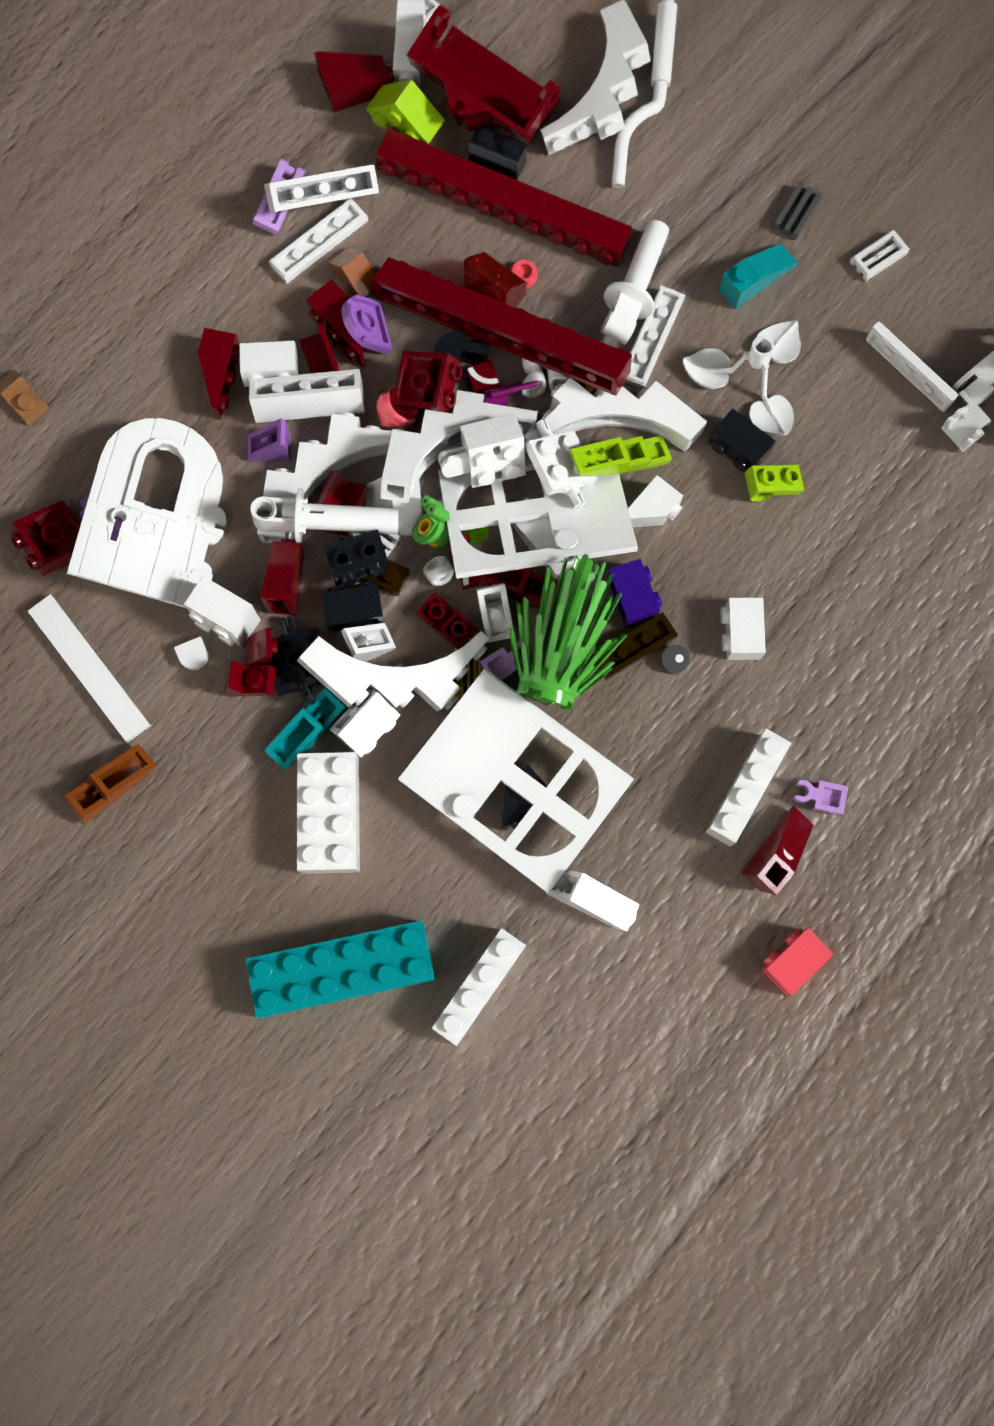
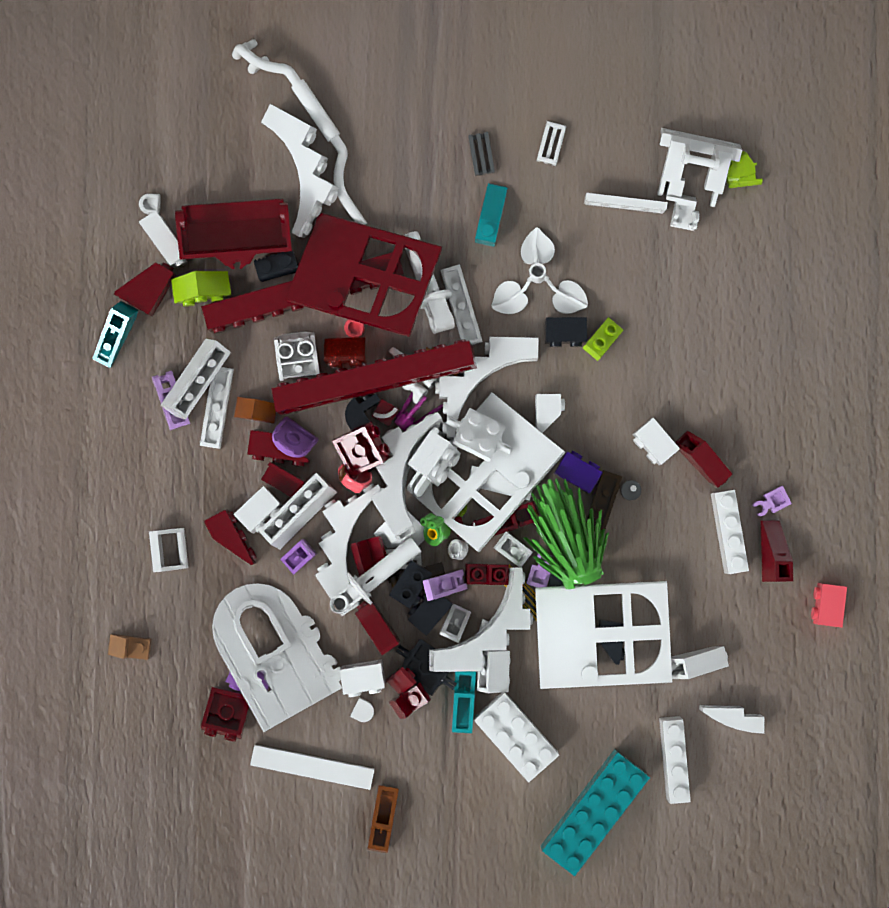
camera: 45 degrees left, 10 degrees up
(134, 323) = (157, 550): none -> white tile
(285, 92) = (115, 333): none -> teal slope
(391, 587) = (444, 585): none -> lavender plate
(440, 250) = (296, 355): none -> white slope
(565, 186) = (334, 261): none -> dark red door
(584, 997) = (734, 717): none -> white slope
(620, 456) = (507, 400): lime slope -> none
(783, 688) = (703, 459): none -> dark red slope

